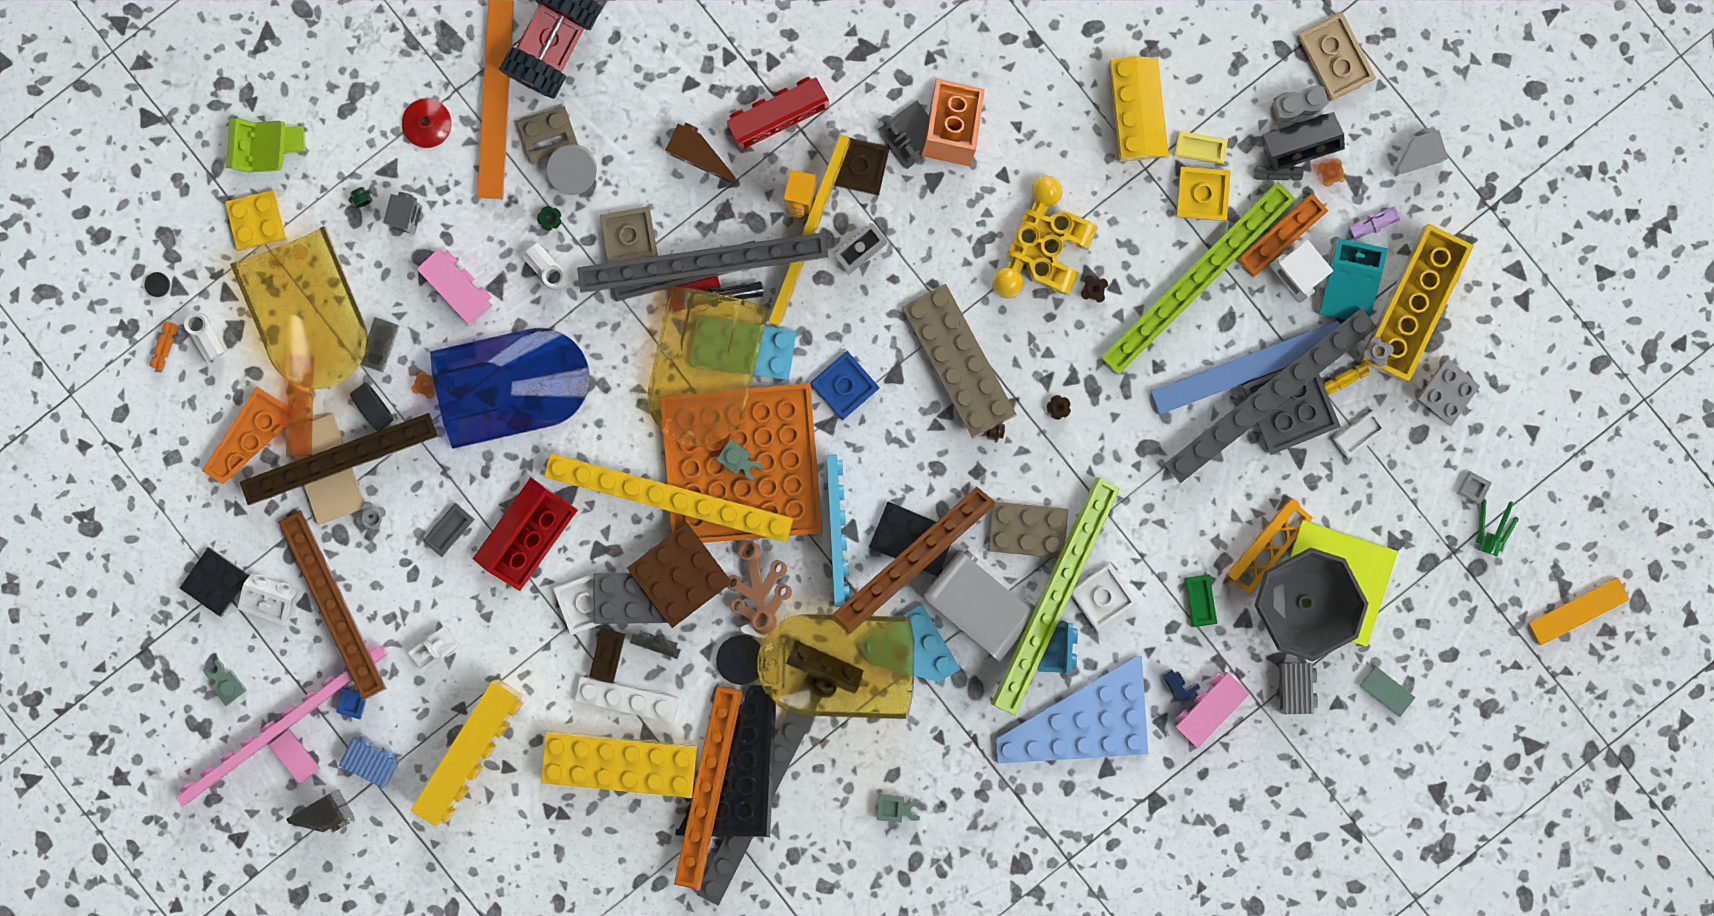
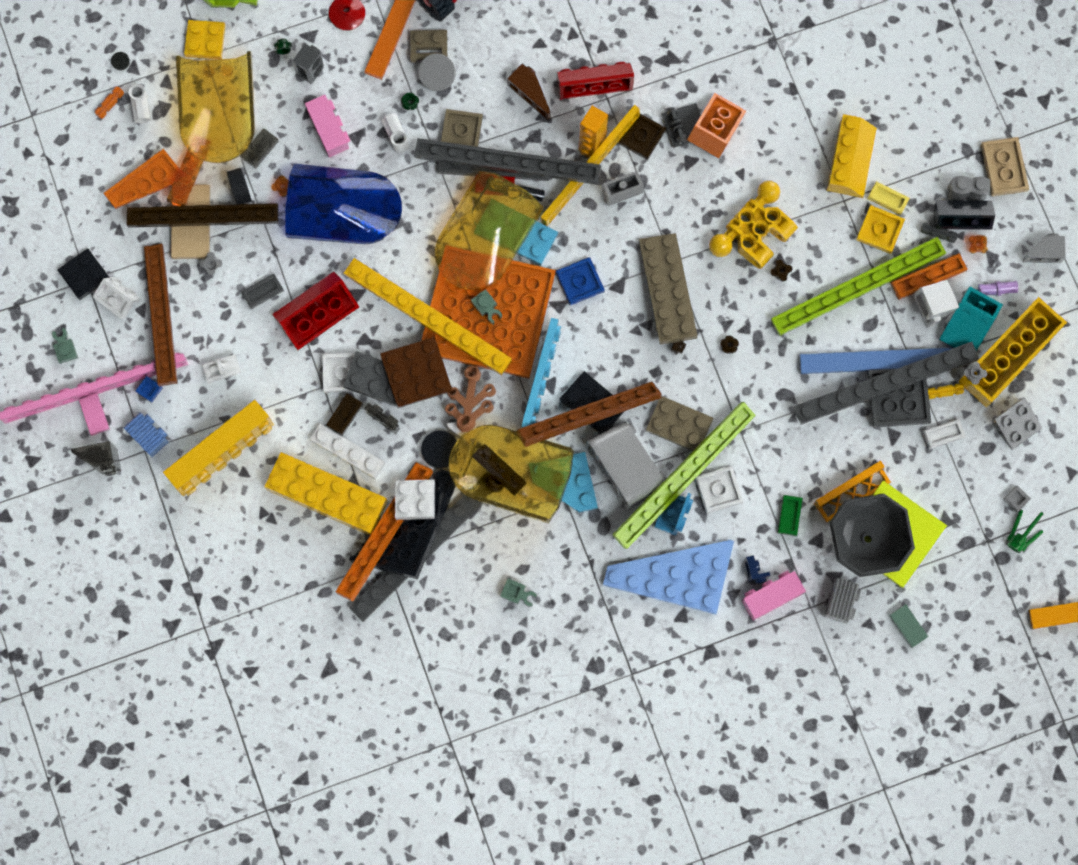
camera: 15 degrees right, 10 degrees down
(732, 737) = (415, 499): none -> white plate

